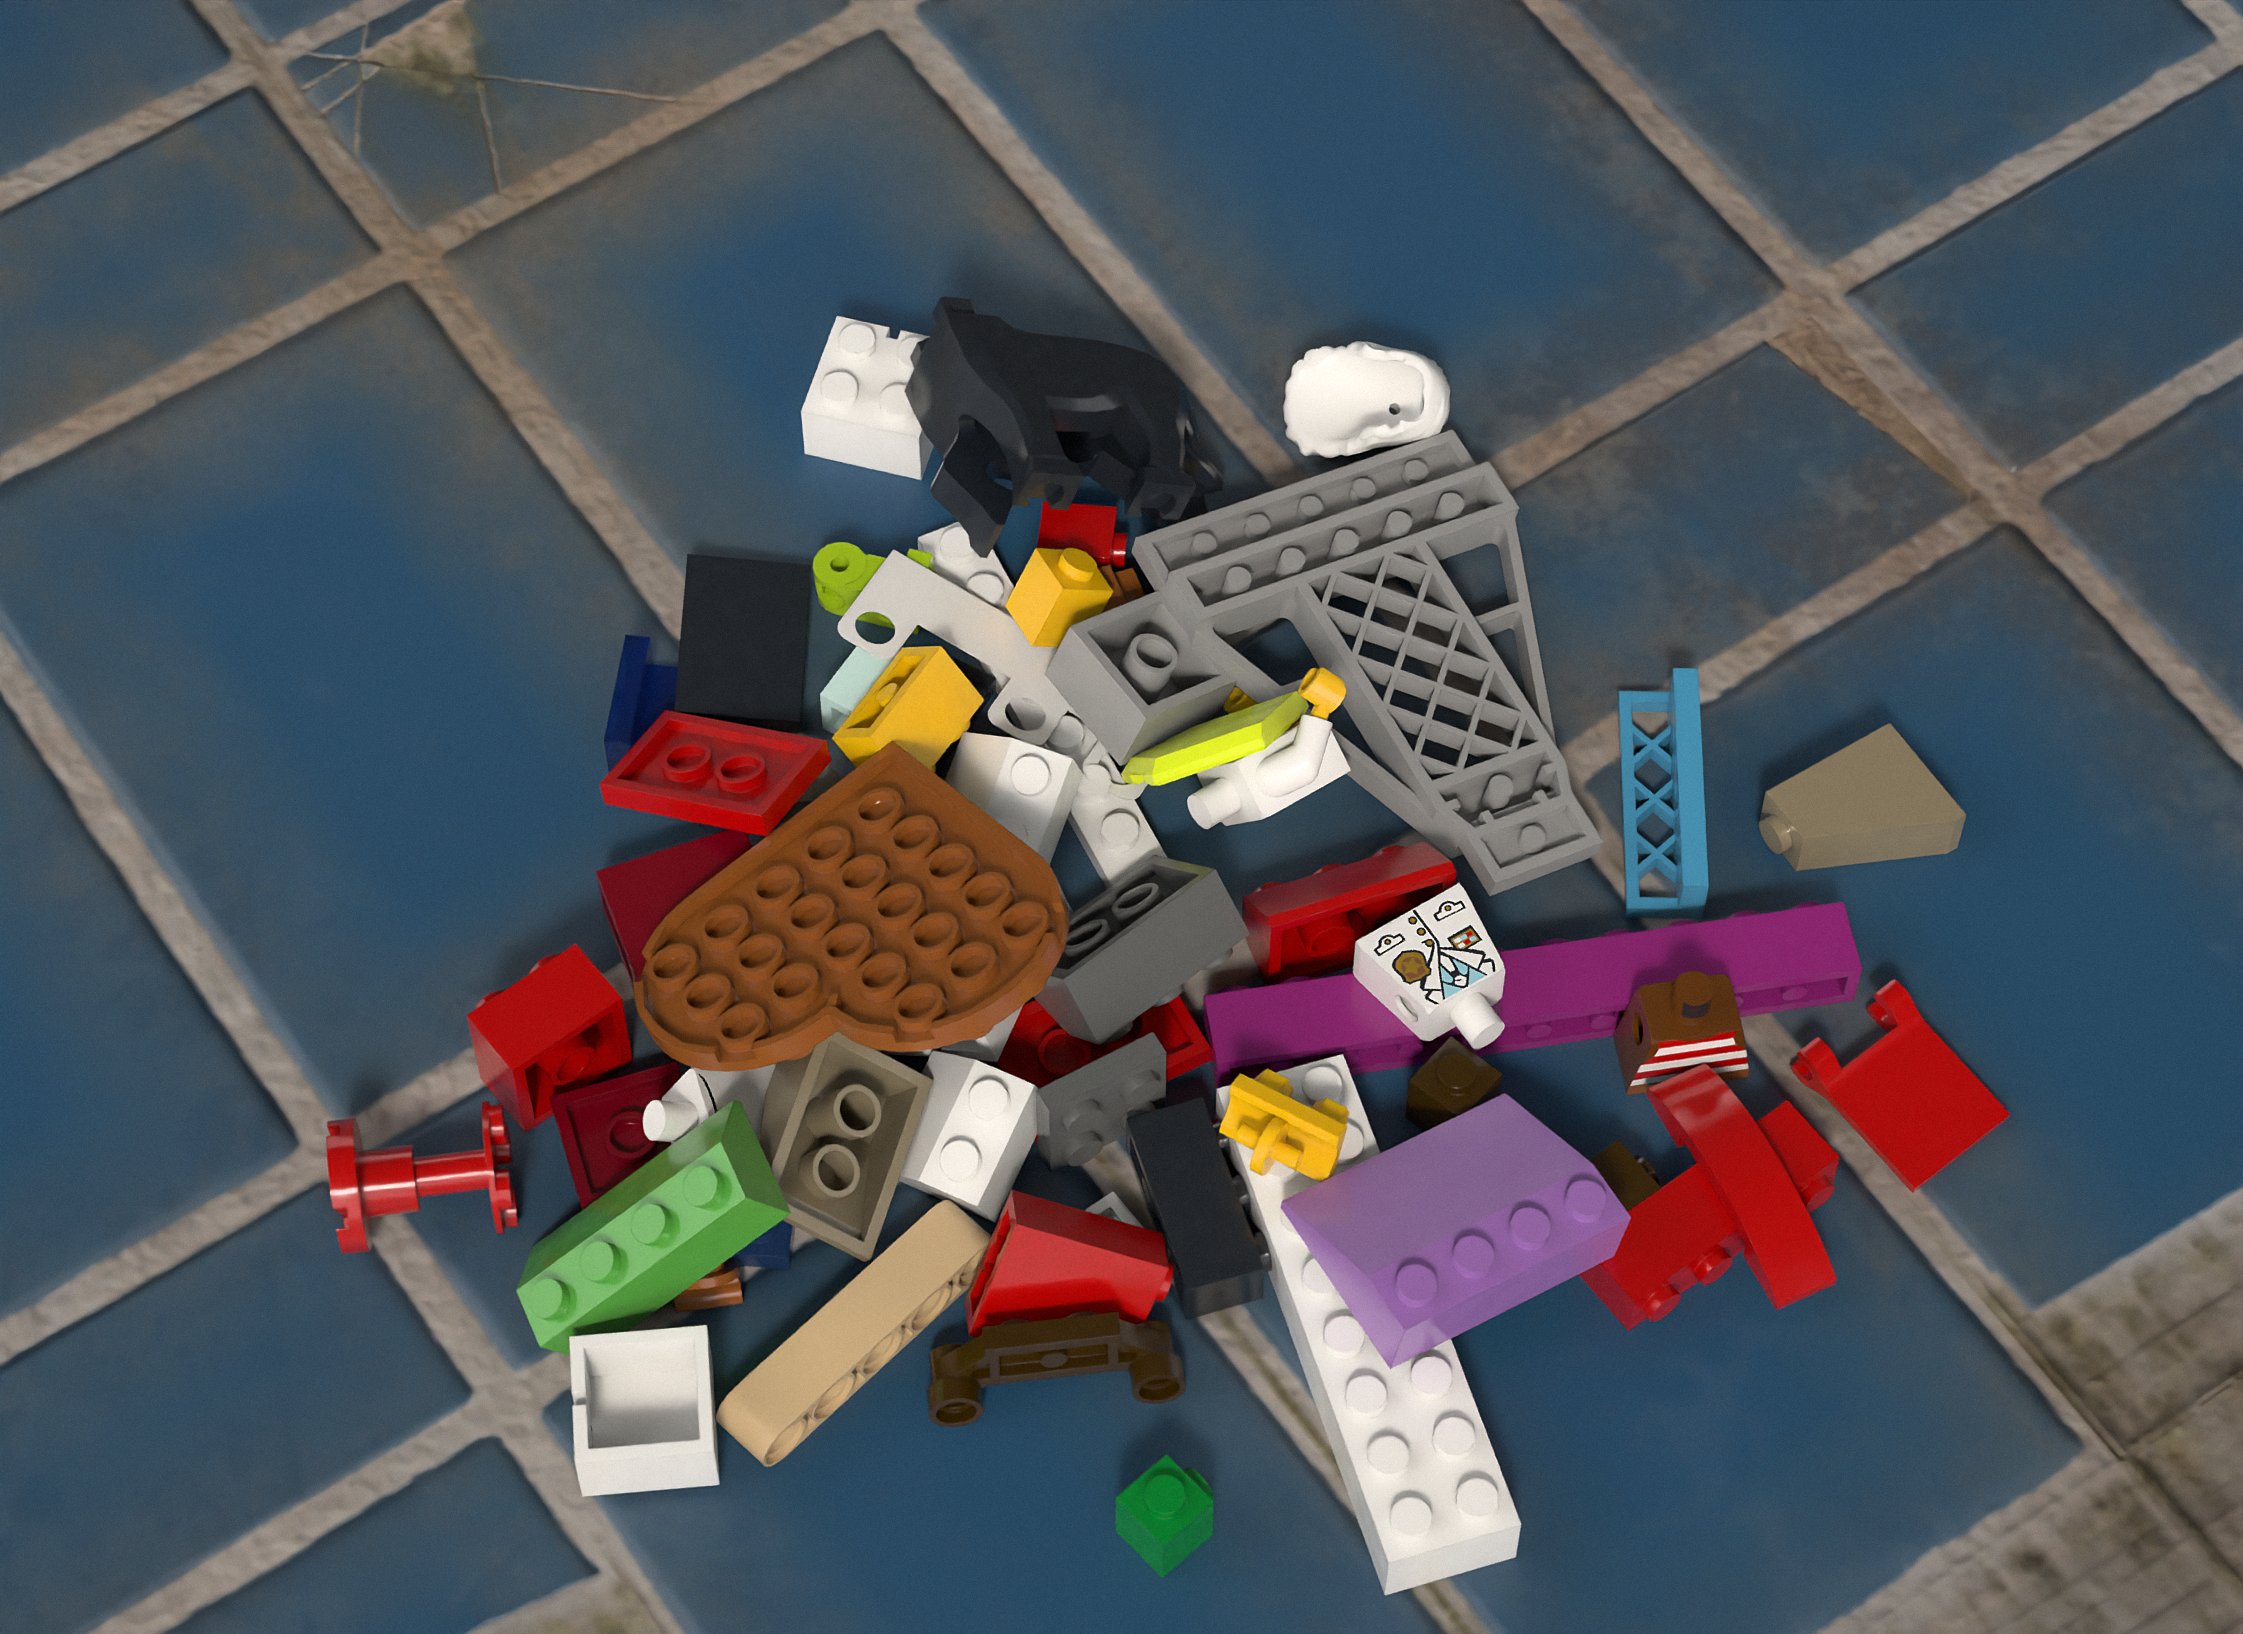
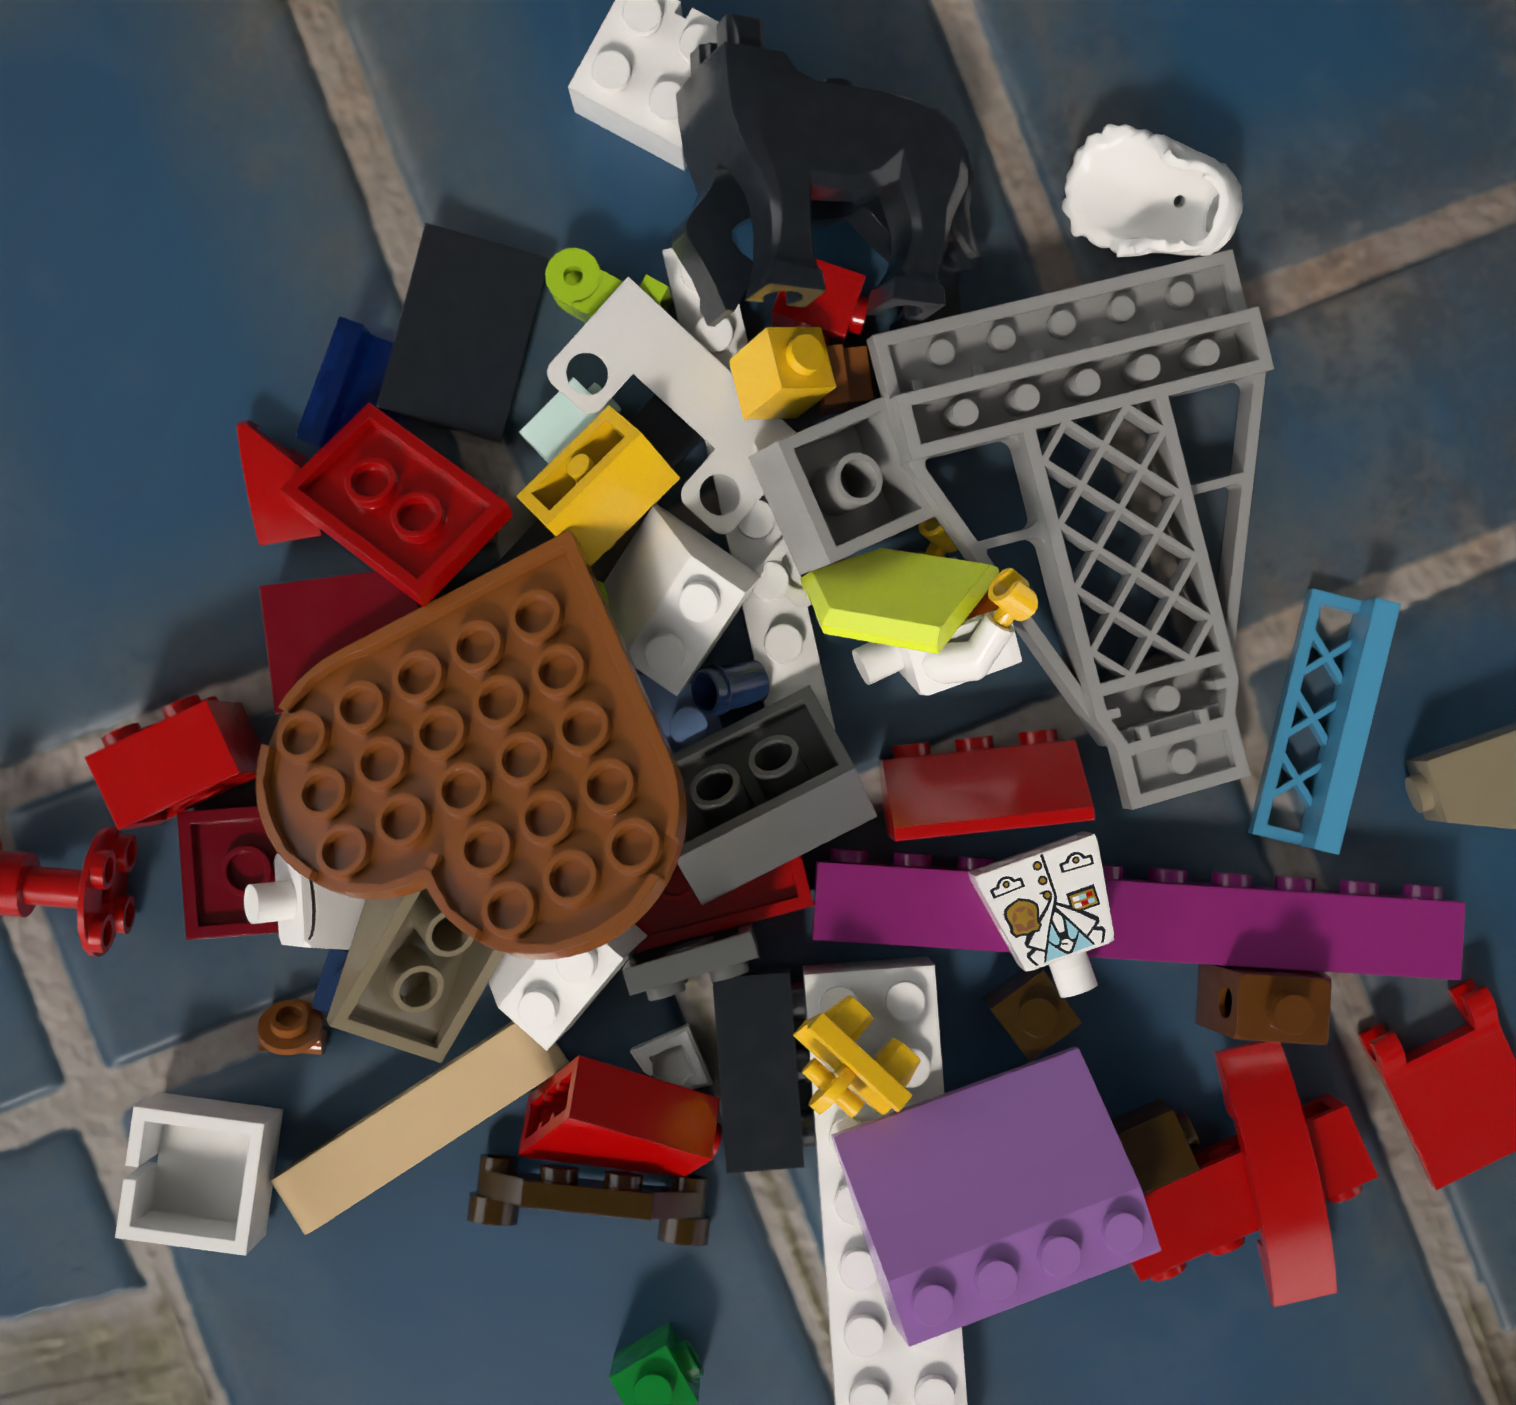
camera: 10 degrees right, 30 degrees up
(591, 823) = (265, 471): none -> red slope
(653, 1234) = (229, 1011): bright green slope -> none
(1082, 873) = (729, 686): none -> dark blue piece

